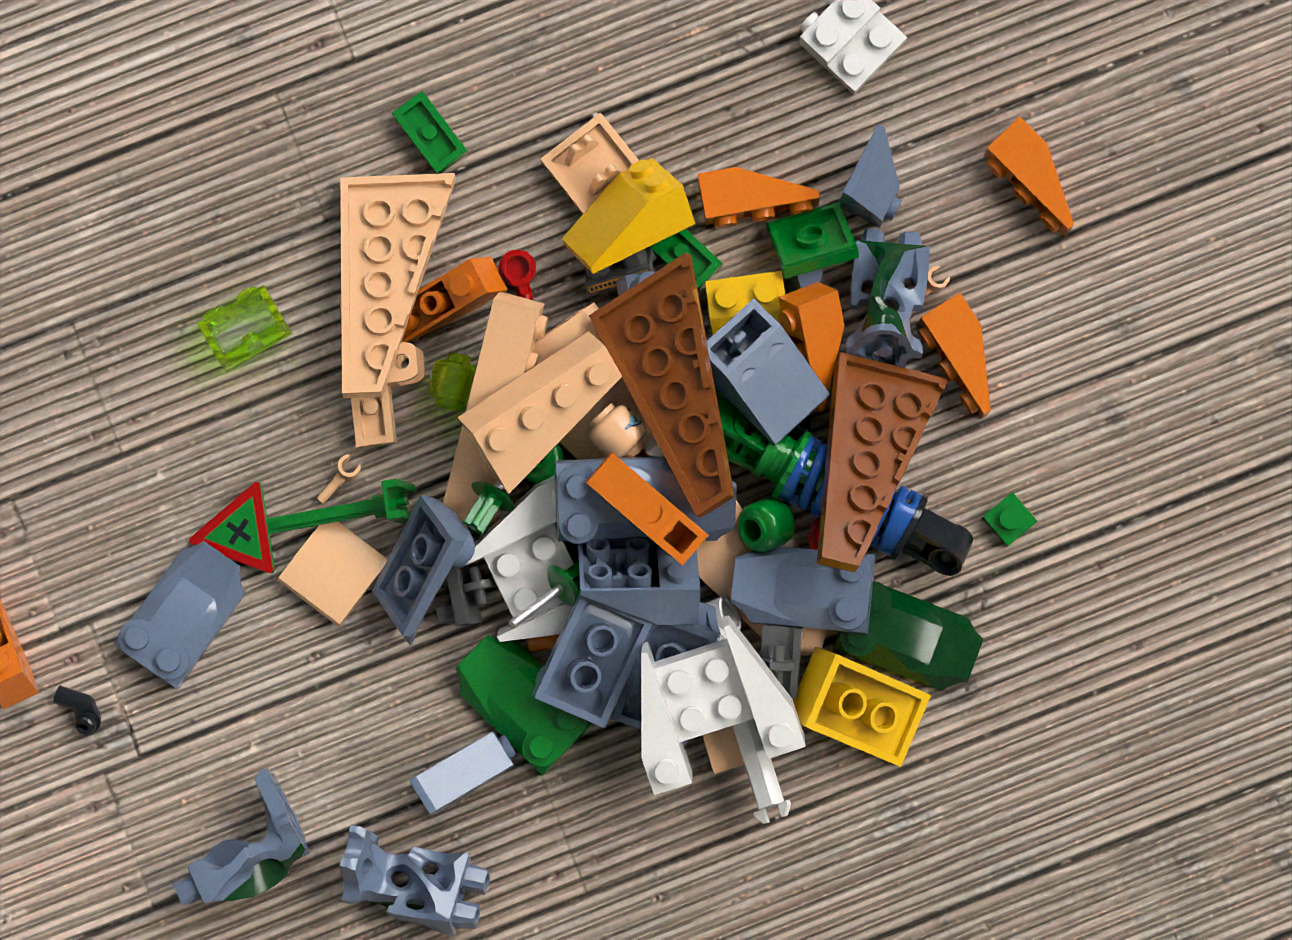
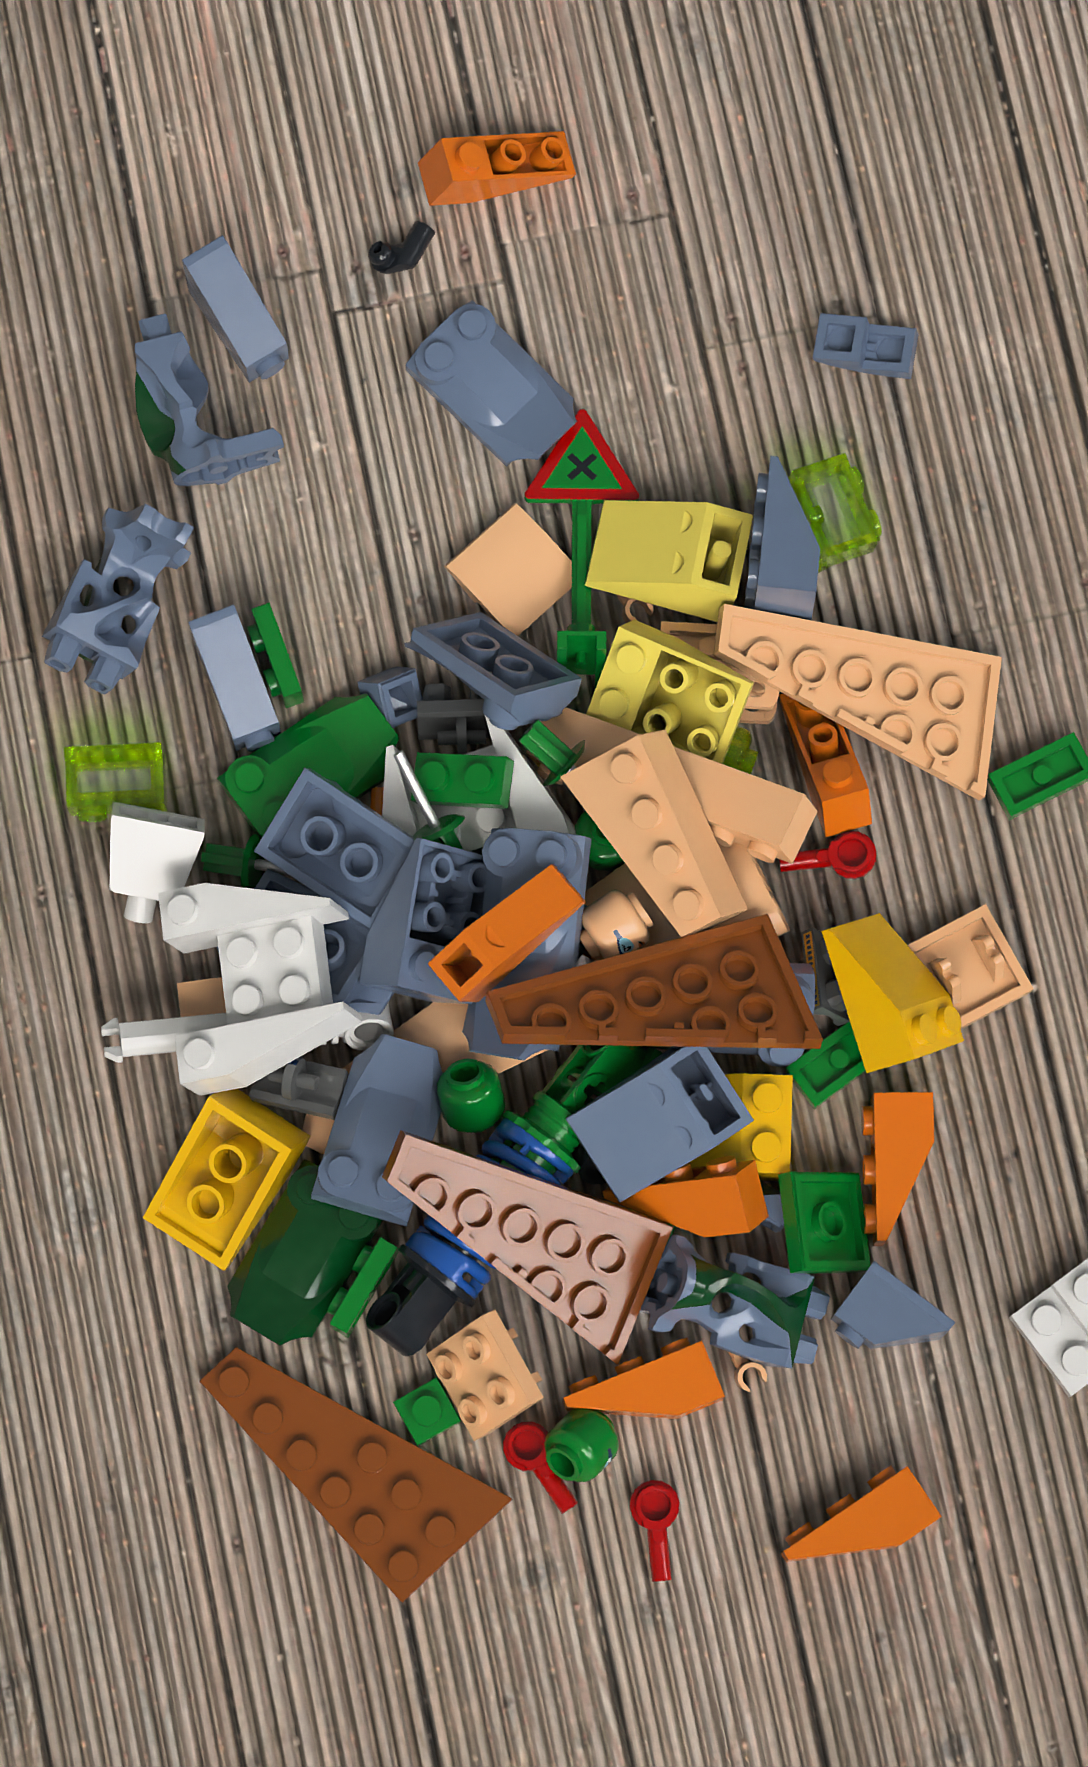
camera: 90 degrees right, 5 degrees down
(100, 325) = (865, 347): none -> sand blue slope
(156, 831) = (235, 310): none -> sand blue slope
(287, 356) = (782, 550): none -> sand blue slope
(302, 446) = (670, 554): none -> light yellow slope
(419, 424) = (669, 685): none -> light yellow slope
(422, 756) = (268, 638): none -> green plate
(449, 647) = (394, 693): none -> sand blue slope
(519, 572) = (465, 779): none -> green plate
(560, 854) = (112, 774): none -> clear neon green window
(608, 745) = (238, 861): none -> green piece
(617, 811) = (150, 855): none -> white torso
(940, 591) = (350, 1304): none -> green plate
(977, 476) = (485, 1375): none -> light nougat plate
(1016, 395) = (581, 1445): none -> green head
(1024, 435) = (526, 1452): none -> red plate
(1050, 333) = (655, 1508): none -> red plate
(1075, 548) = (374, 1488): none -> dark orange wing

